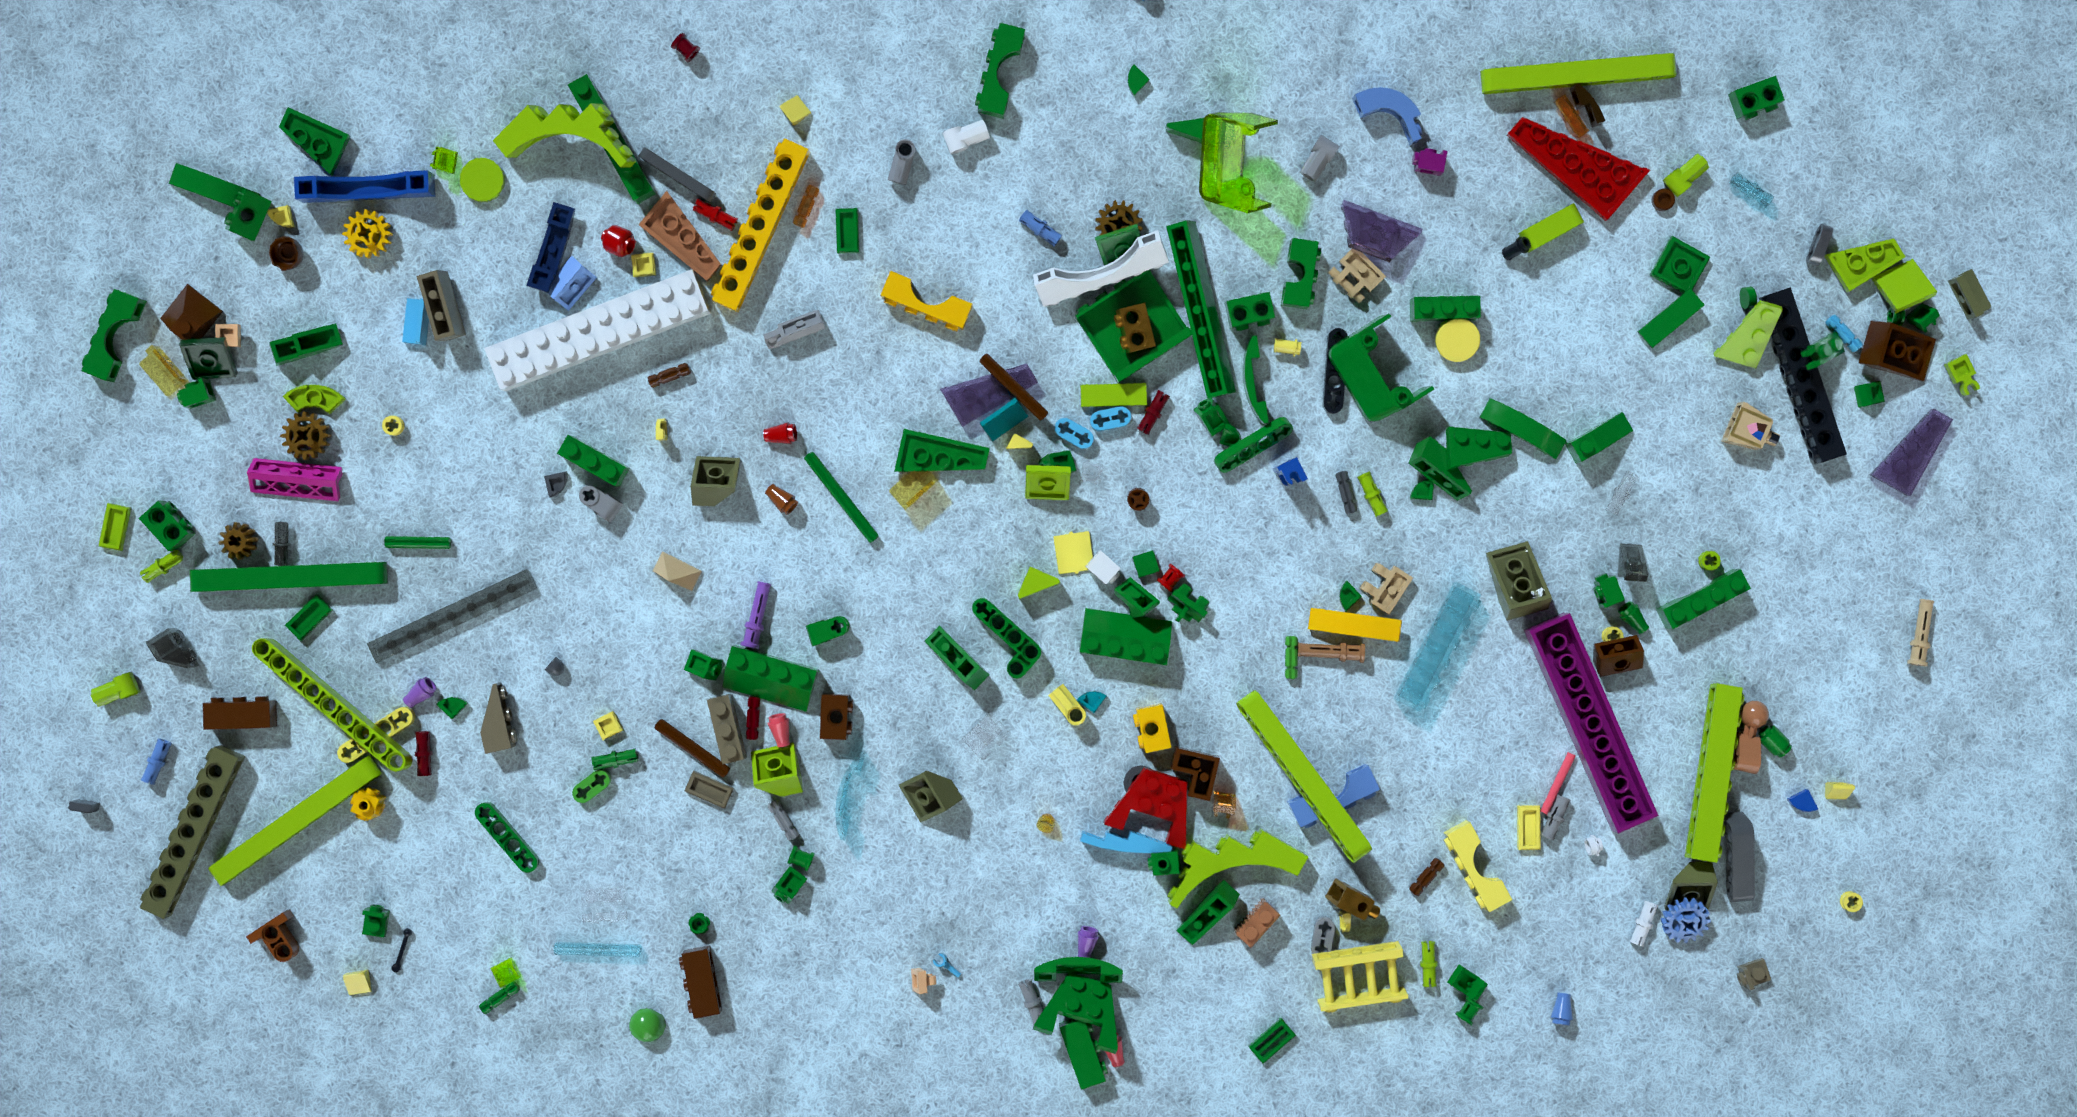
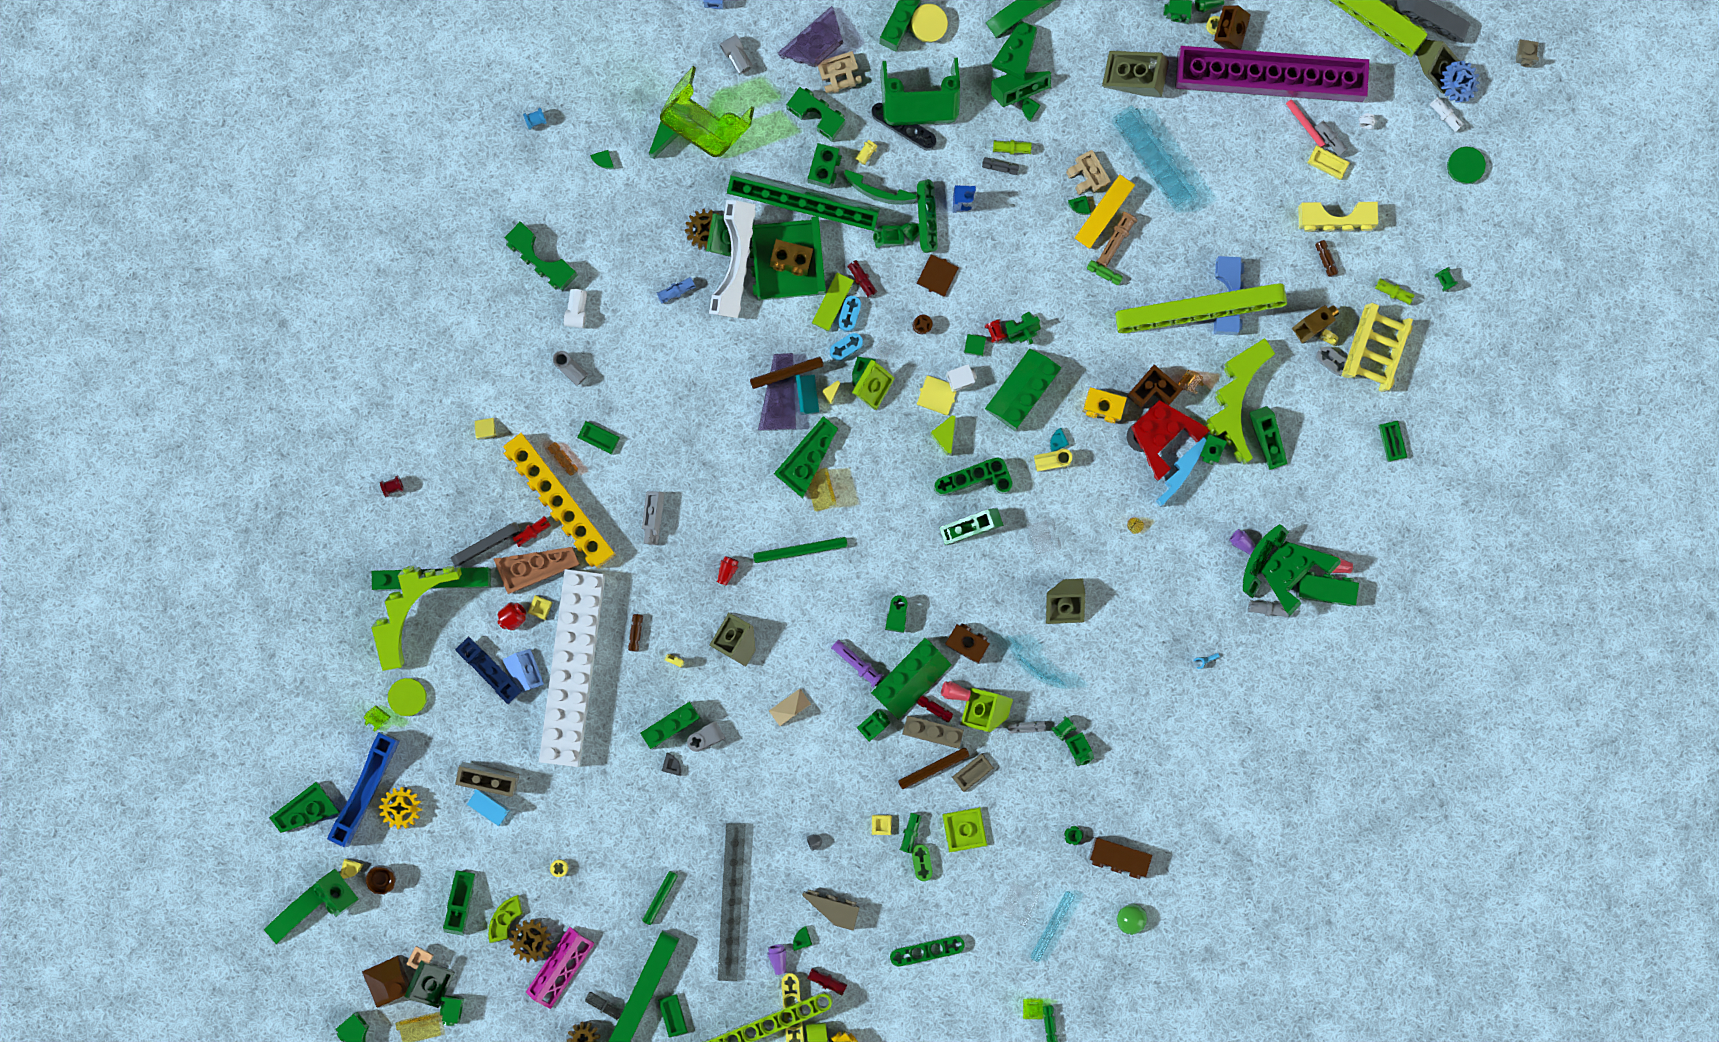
camera: 65 degrees left, 5 degrees down
(647, 811) = (964, 829): none -> lime tile
(782, 500) = (777, 596): dark orange cone -> none
(921, 980) = (1207, 685): light nougat tile -> none
(952, 312) = (667, 421): yellow arch -> none
(1136, 597) = (996, 364): green slope -> none
(1198, 487) = (937, 275): none -> reddish brown piece
(1257, 922) = (1295, 404): nougat brick -> none
(1467, 982) = (1424, 269): green bracket -> none
(1562, 1009) = (1482, 209): medium blue cone -> none
(1600, 970) = (1466, 165): none -> green tile

